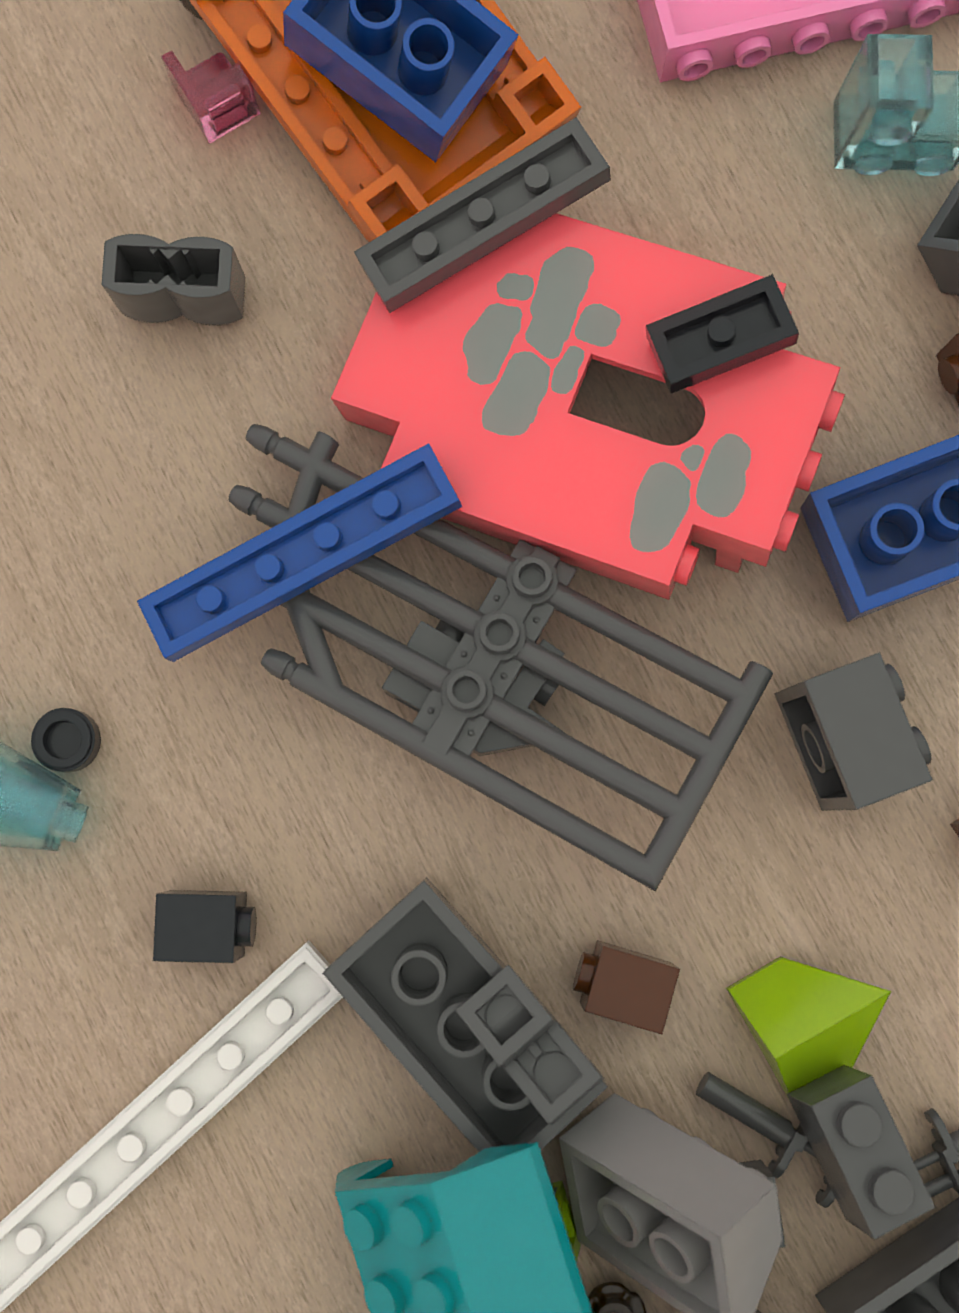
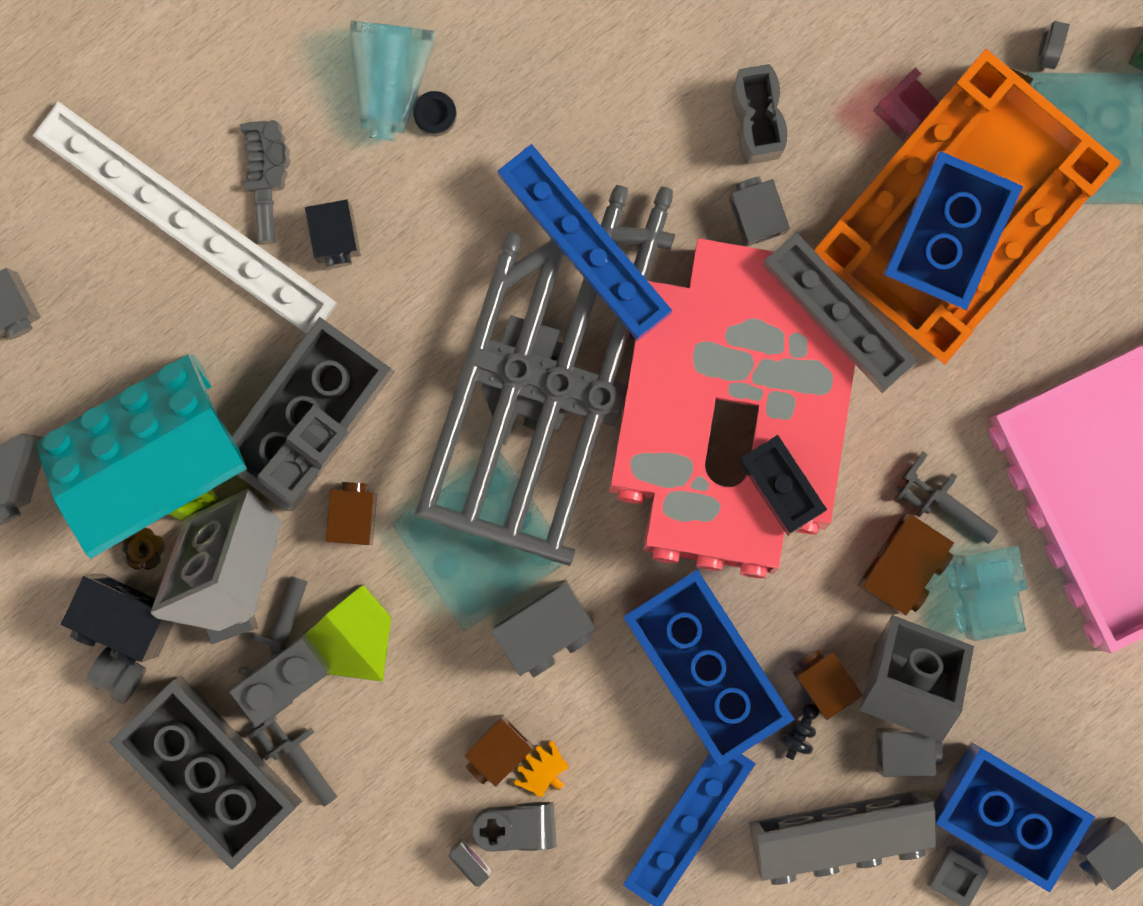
camera: 75 degrees right, 5 degrees up
(80, 1003) = (267, 165): none -> dark grey piece
(311, 313) = (758, 211): none -> dark grey brick
(746, 829) = (470, 571): none -> clear light blue plate
(759, 159) = (944, 502): none -> dark grey piece
(844, 218) = (907, 565): none -> reddish brown brick

